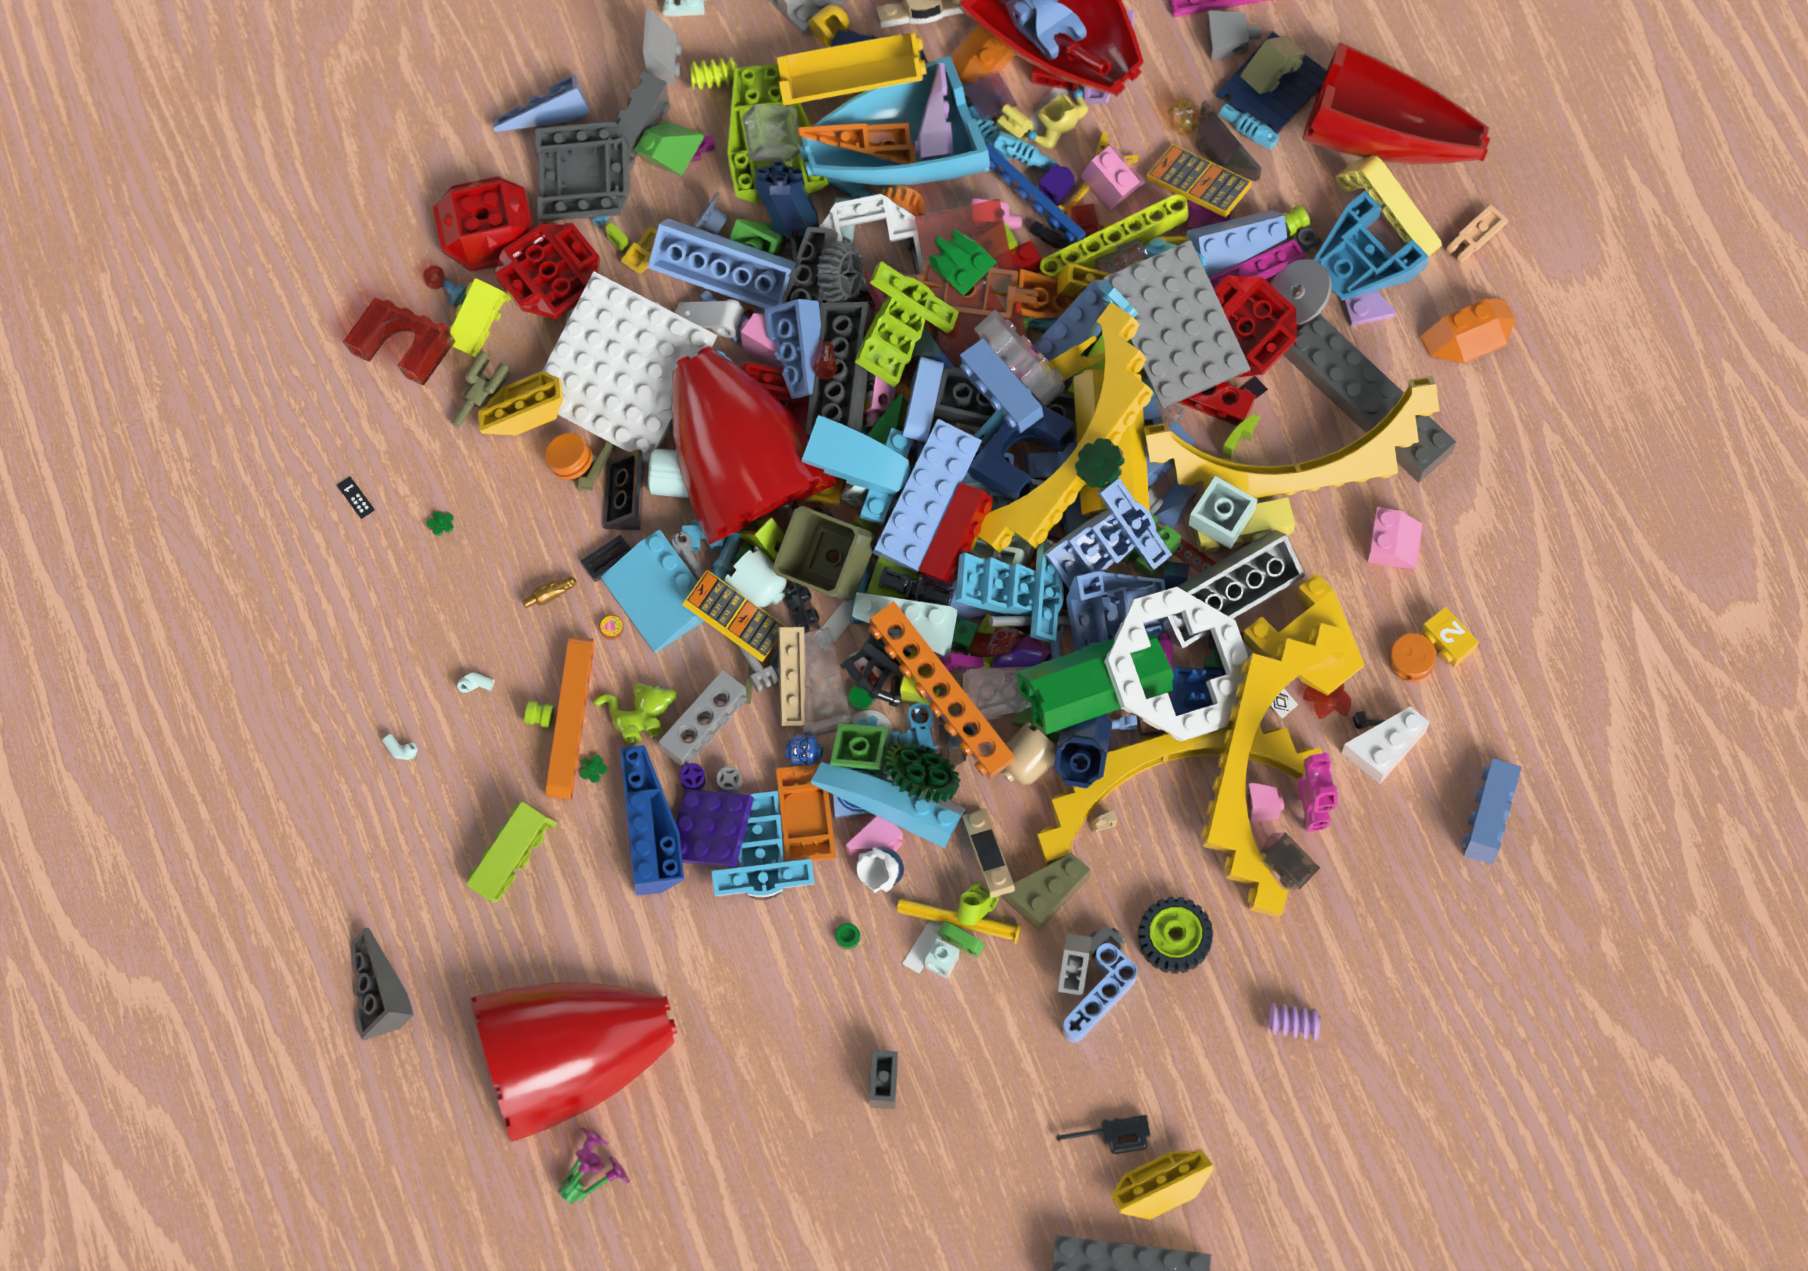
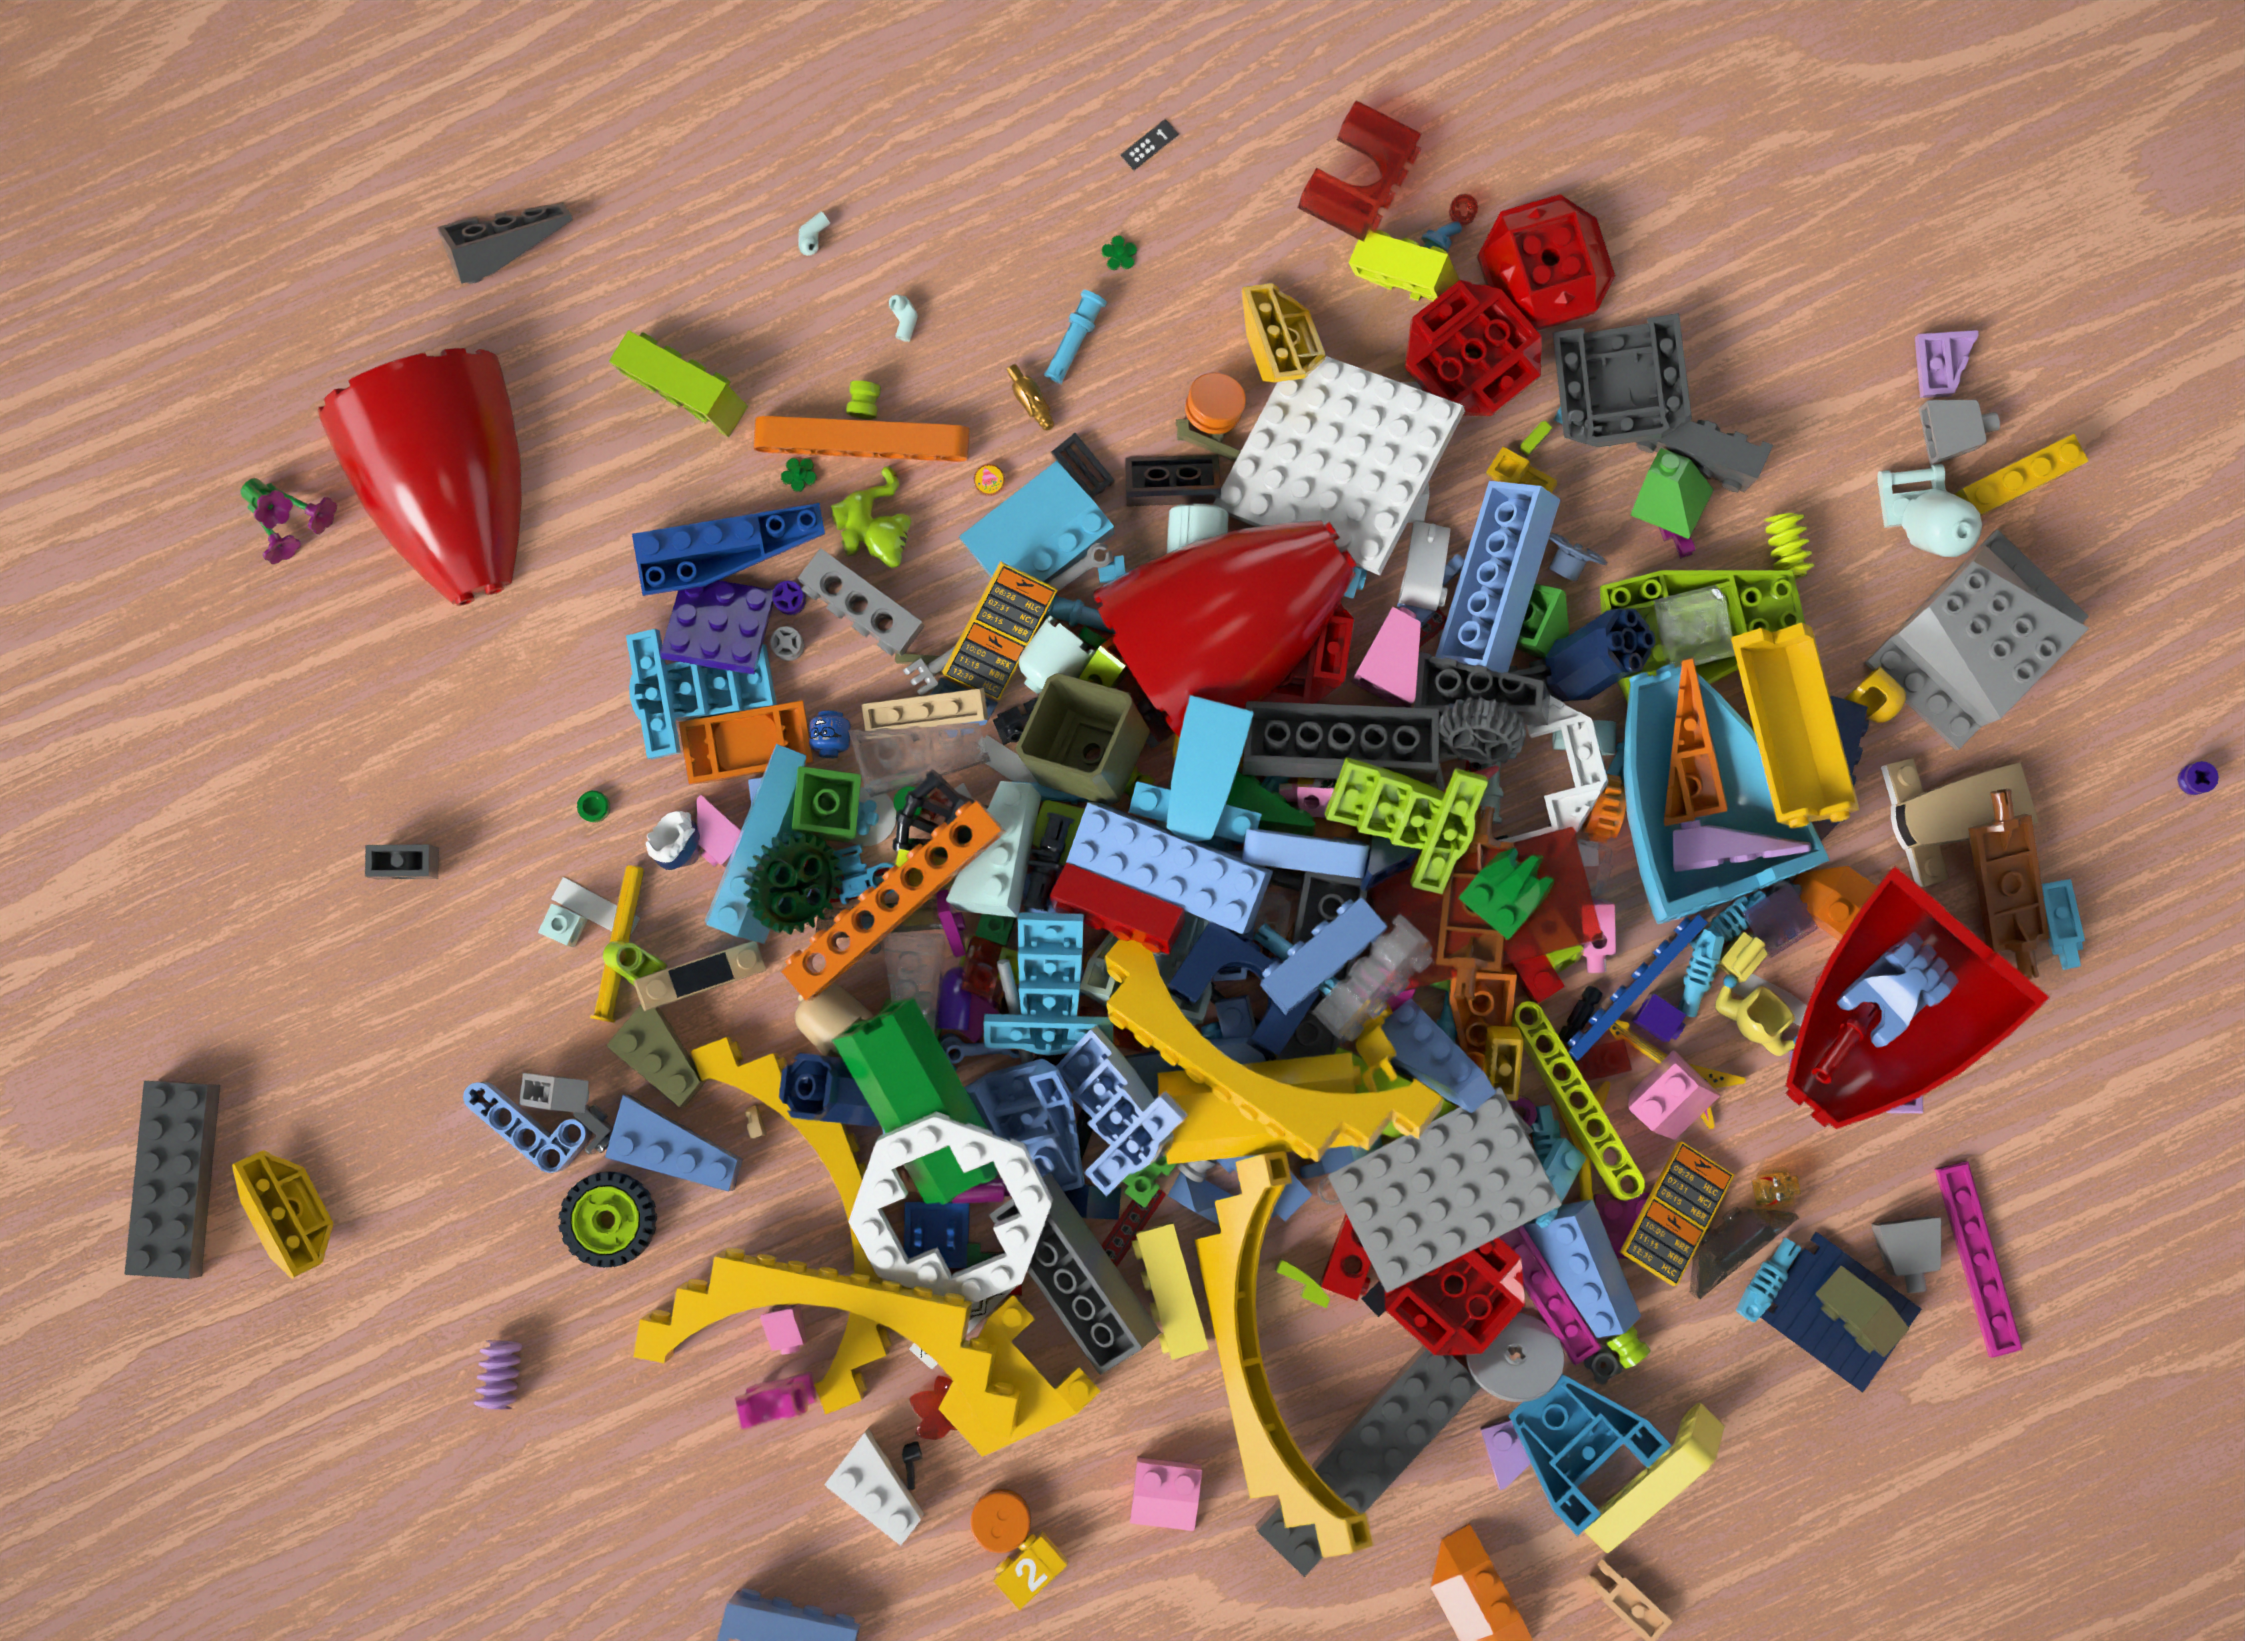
camera: 90 degrees right, 15 degrees up
(479, 386) = (1307, 281): olive plant -> none
(496, 552) = (1080, 323): none -> medium azure pin
(561, 105) = (1721, 339): medium blue wedge -> none
(661, 49) = (1813, 468): light grey slope -> none
(796, 335) = (1387, 679): medium blue wedge -> none
(825, 361) = (1346, 719): clear red cone -> none
(961, 939) = (591, 948): bright green beam -> none
(1099, 463) = (1203, 1093): dark green plant -> none
(1112, 295) = (1453, 1102): medium azure plate -> none
(1117, 1128) = (356, 1155): black piece -> none
(1119, 887) = (662, 1145): none -> medium blue wedge
(1126, 256) = (1545, 1113): clear slope -> none
(1222, 512) = (1171, 1262): light aqua brick -> none
(1288, 860) = (697, 1361): clear smoke slope -> none
(1389, 114) = (1790, 1477): red panel -> none

